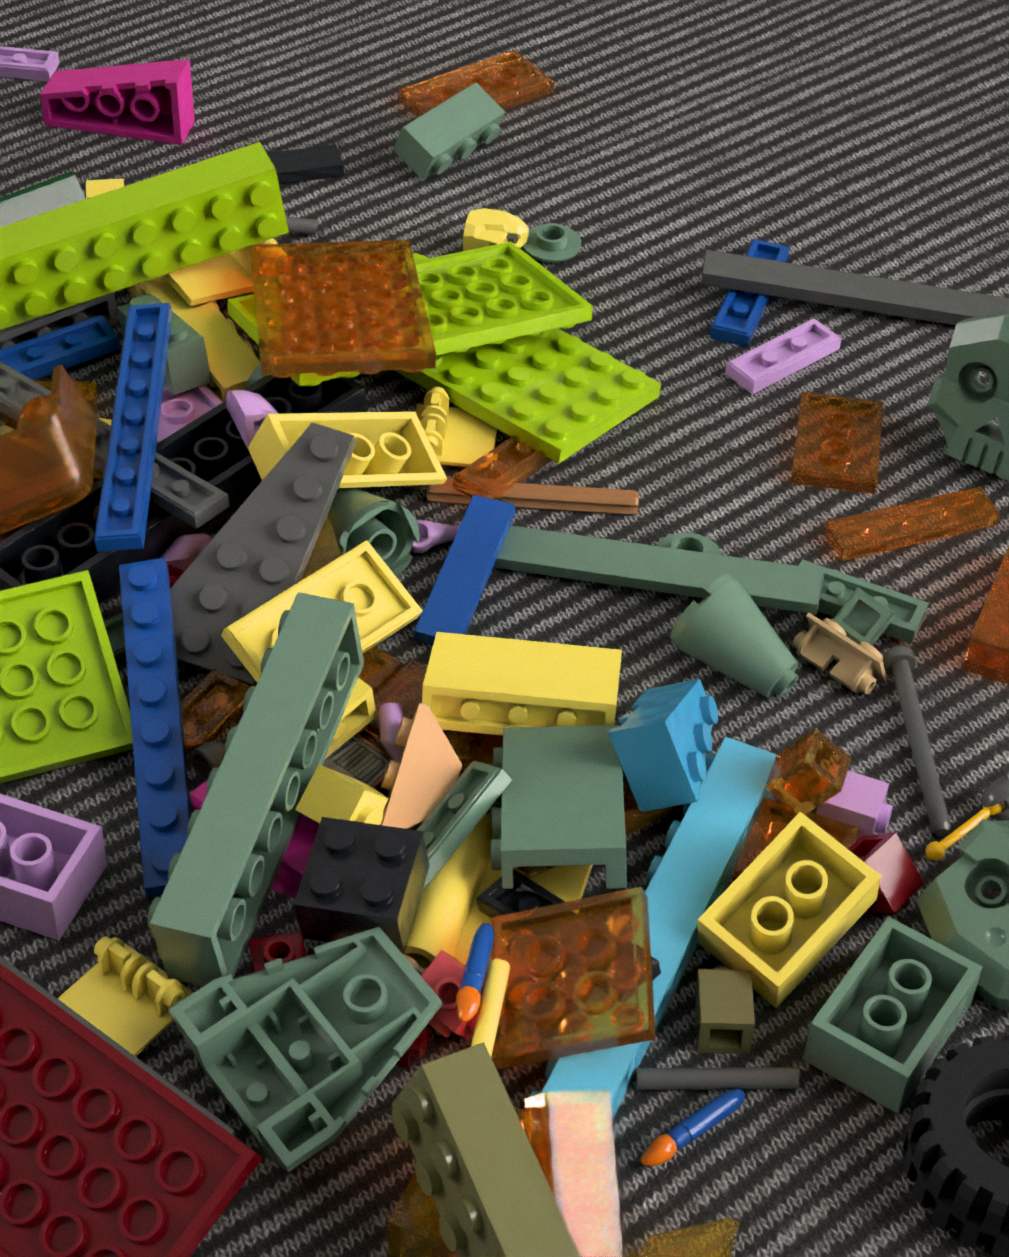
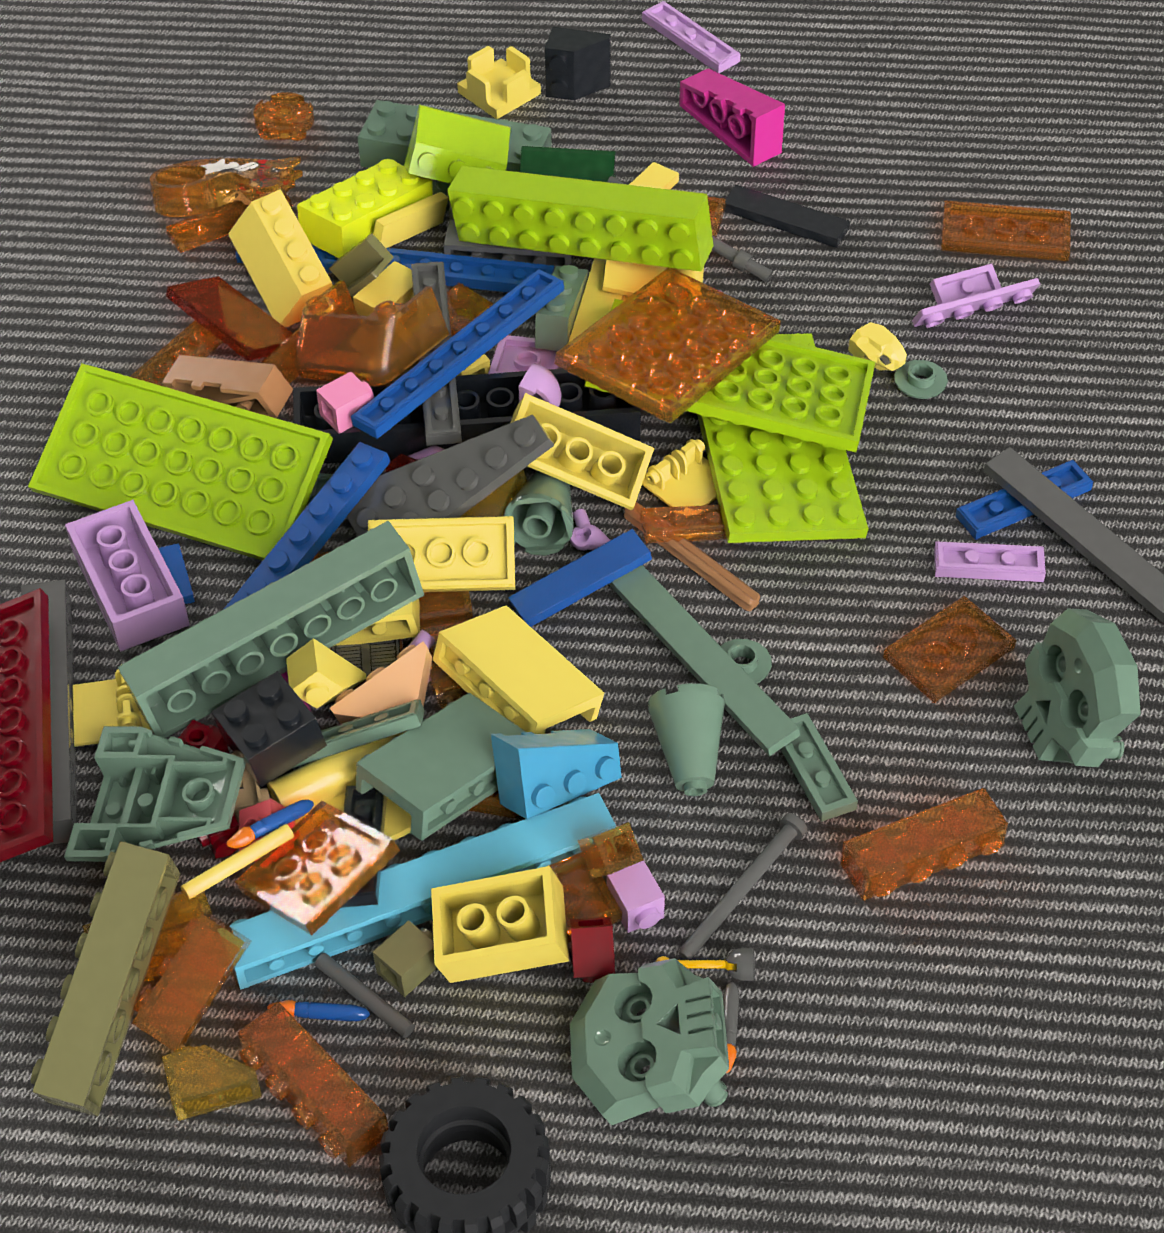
camera: 45 degrees right, 5 degrees up
(64, 534) = (342, 399): none -> bright pink brick
(449, 131) = (934, 251): sand green brick -> none
(511, 153) = (970, 291): none -> lavender bracket
(784, 1191) = (313, 1084): none -> clear orange brick
(856, 662) = (757, 781): tan hinge -> none
(863, 617) = (795, 780): sand green tile -> none
(892, 1014) = (495, 1032): sand green brick -> none
(911, 523) = (928, 740): clear orange tile -> none

